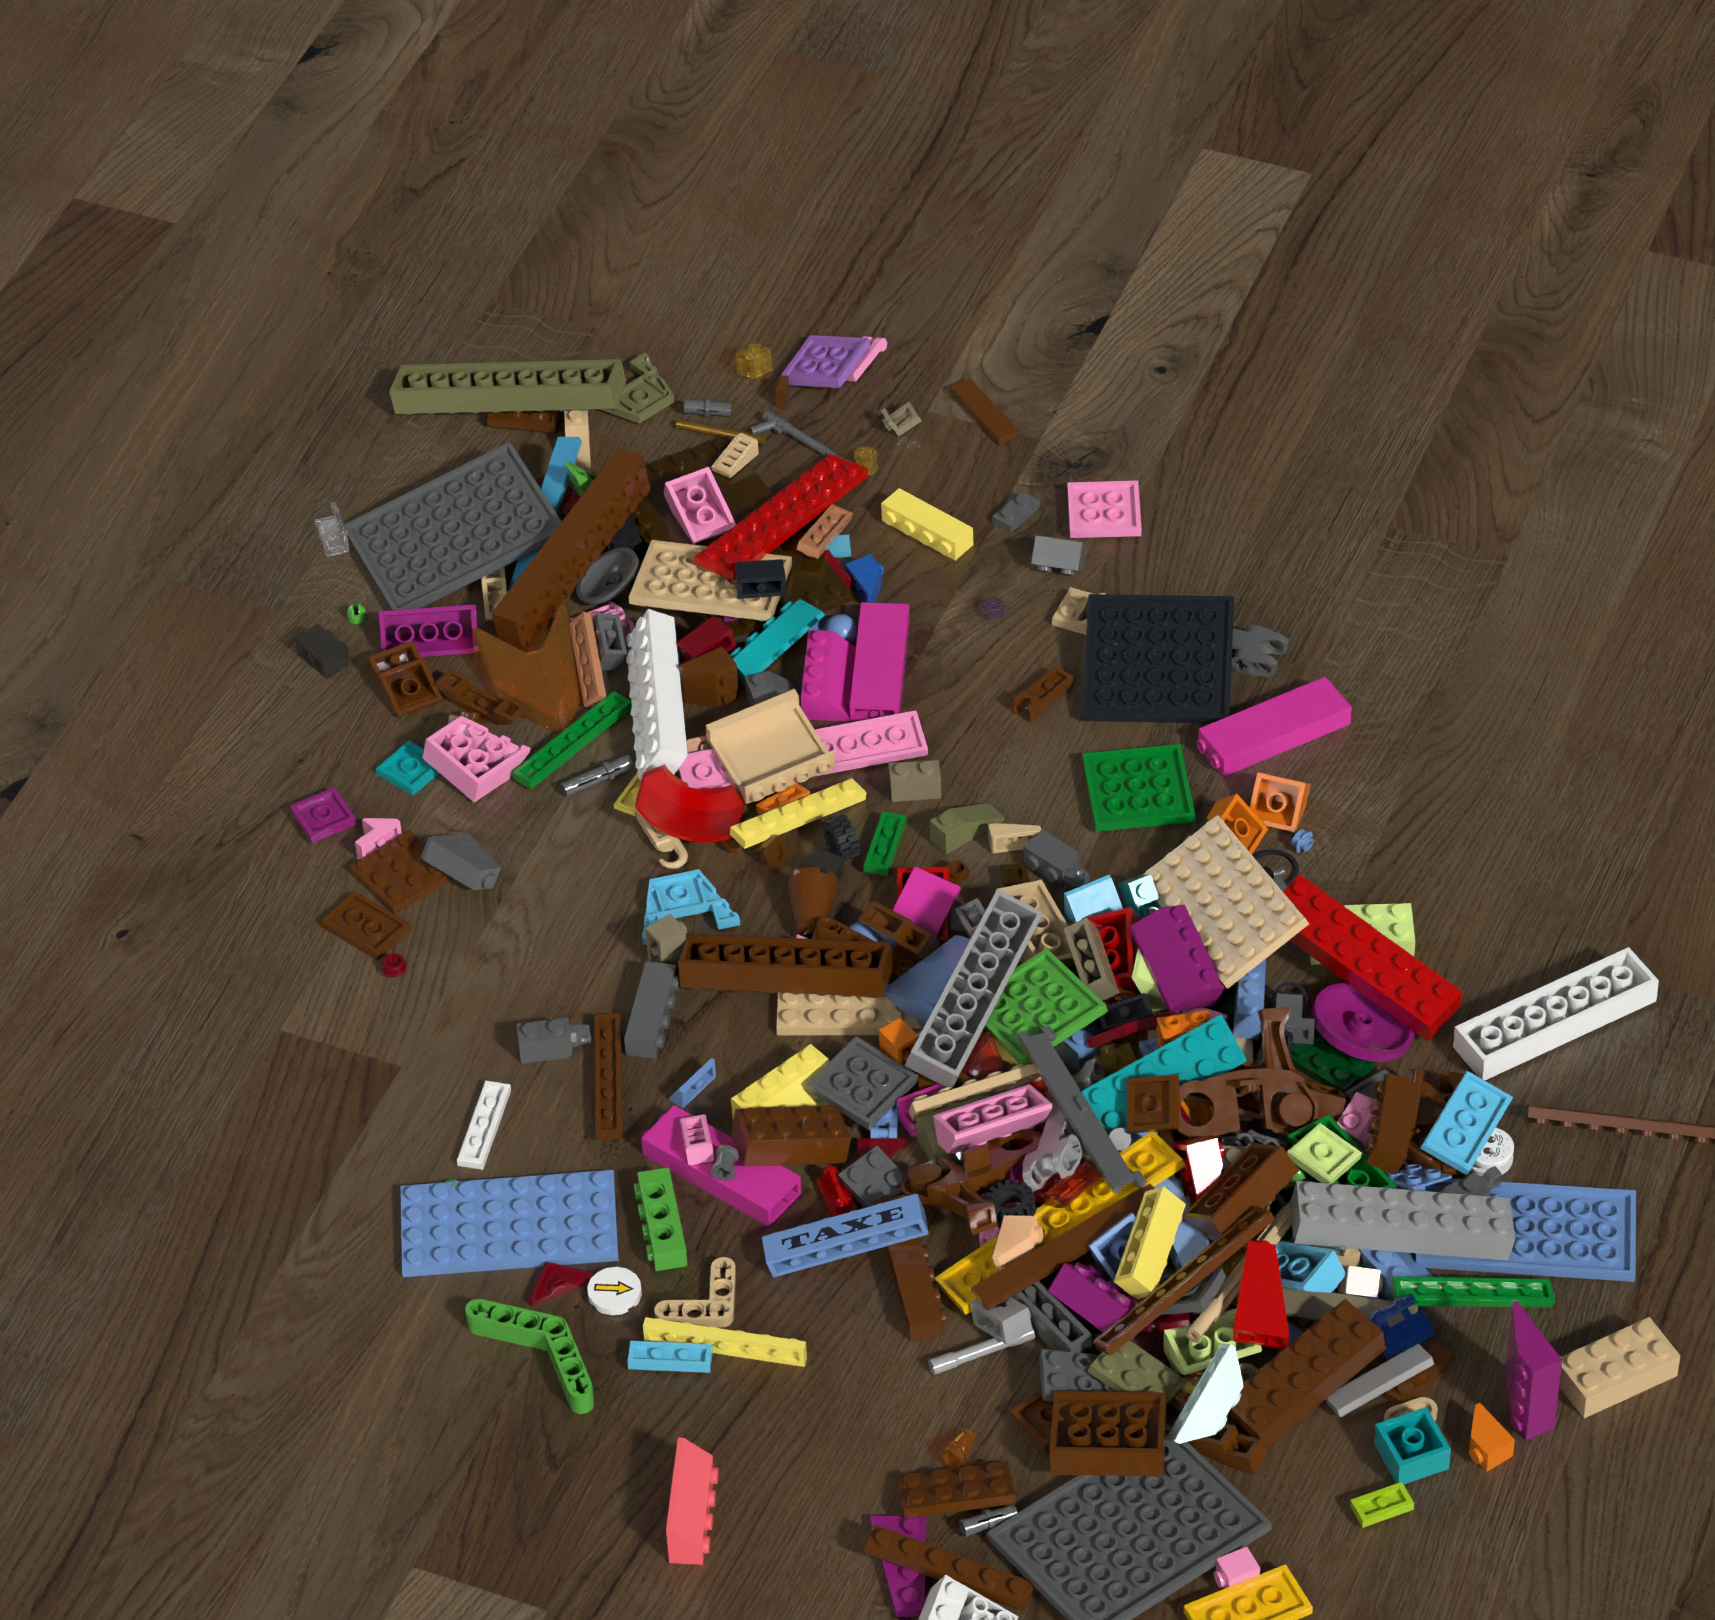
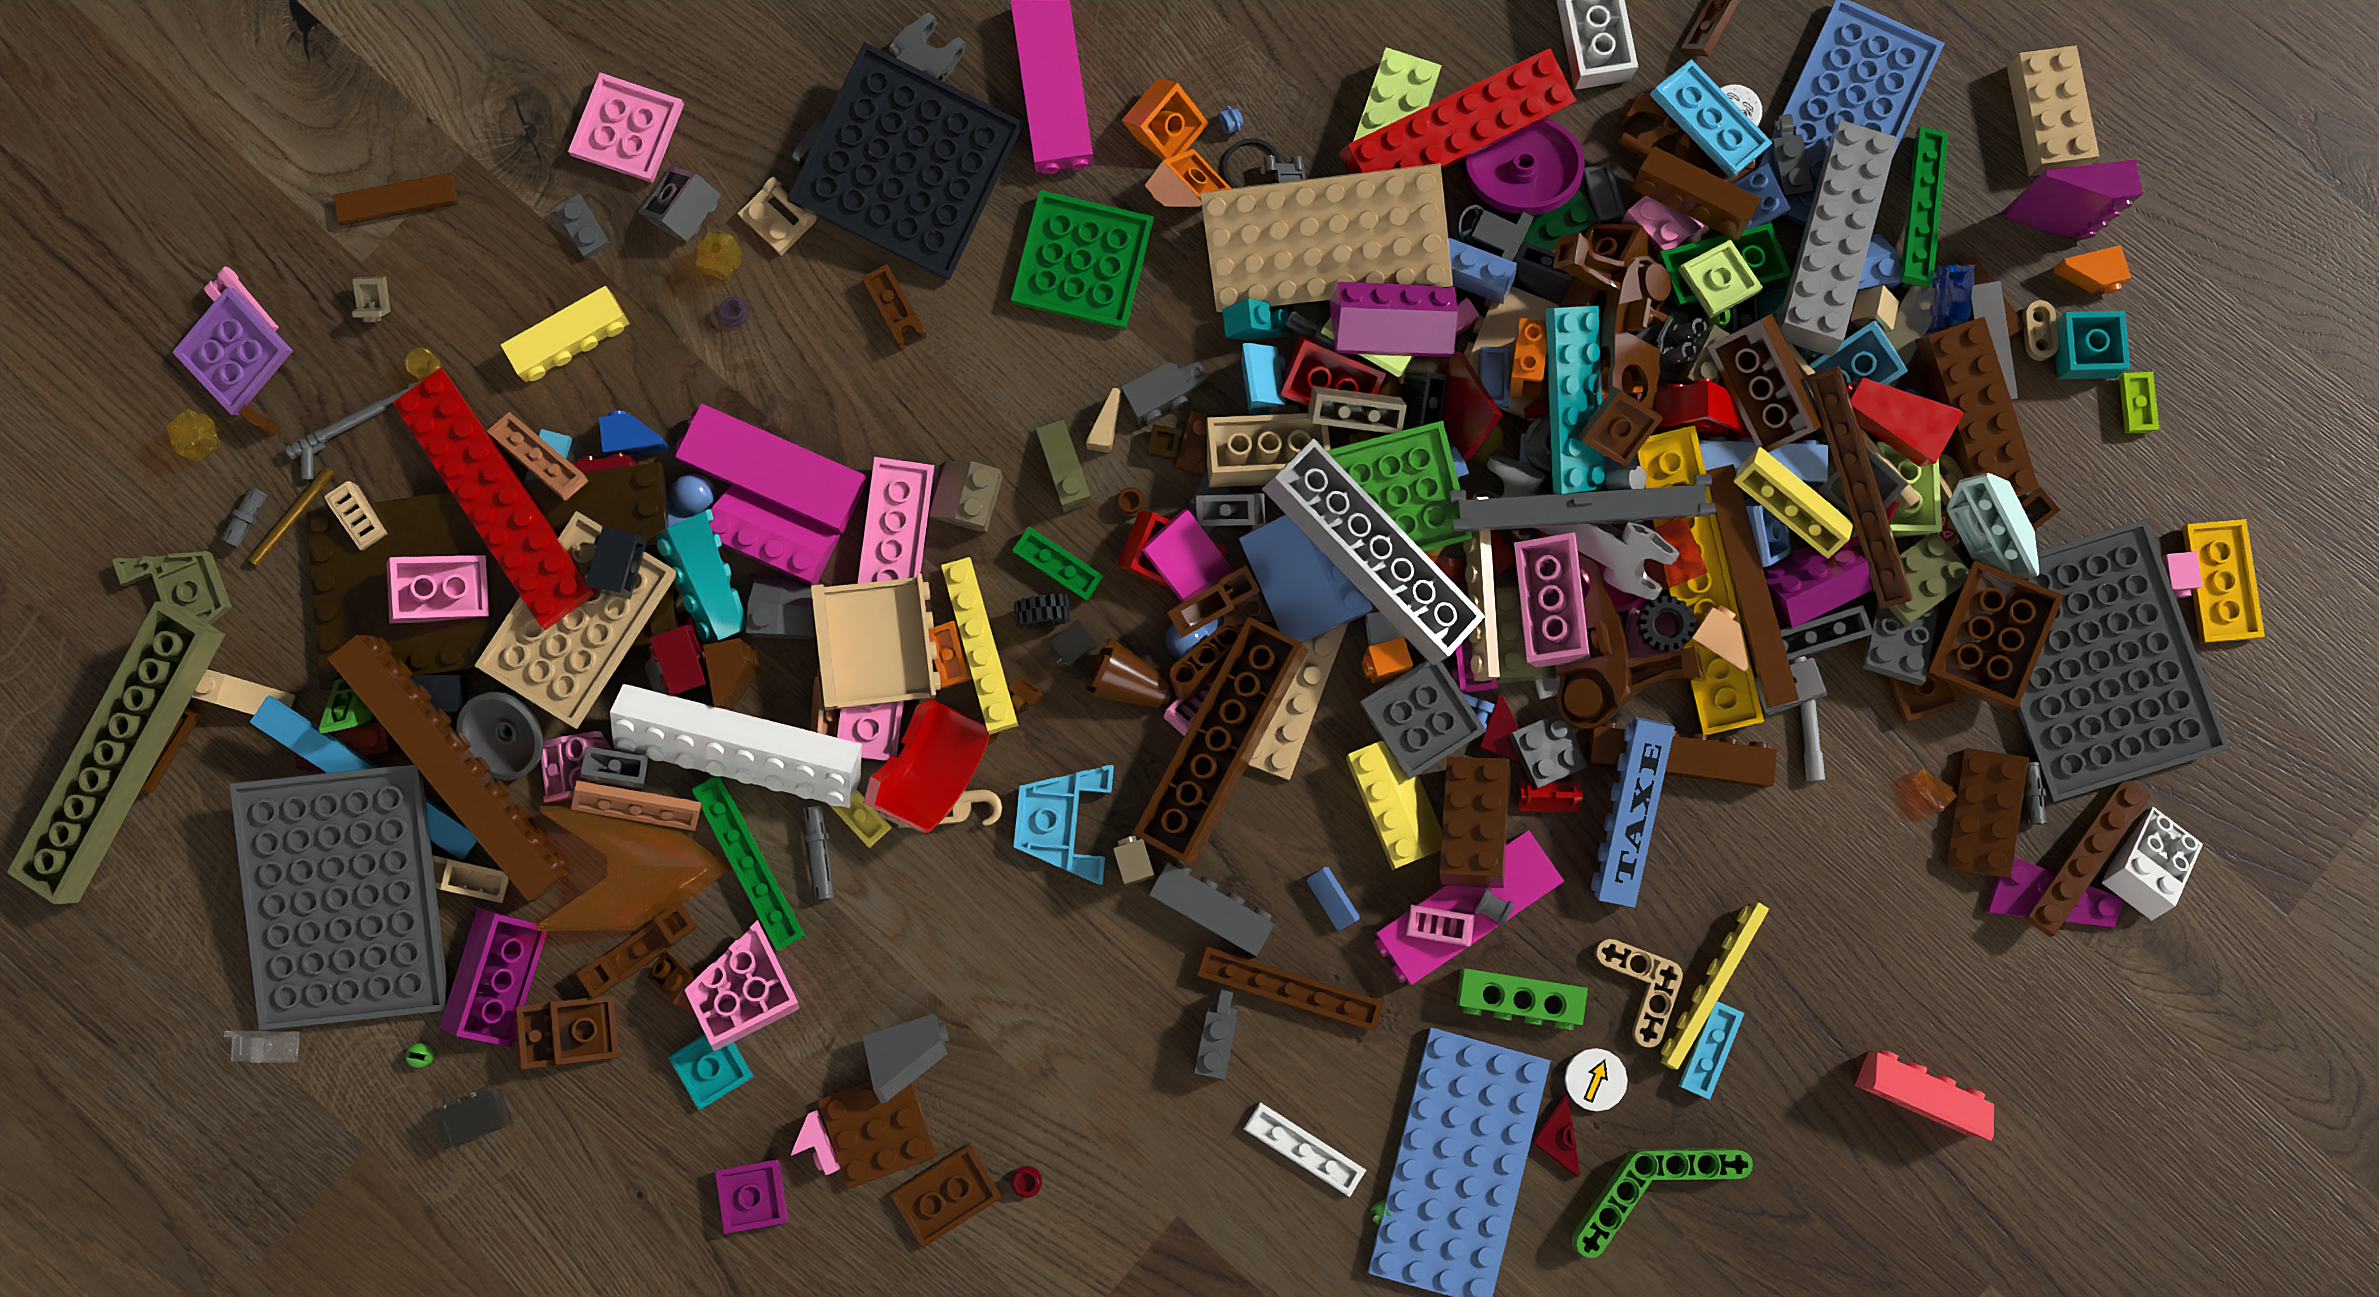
camera: 75 degrees left, 35 degrees up
(1029, 583) = (718, 255): none -> clear yellow brick

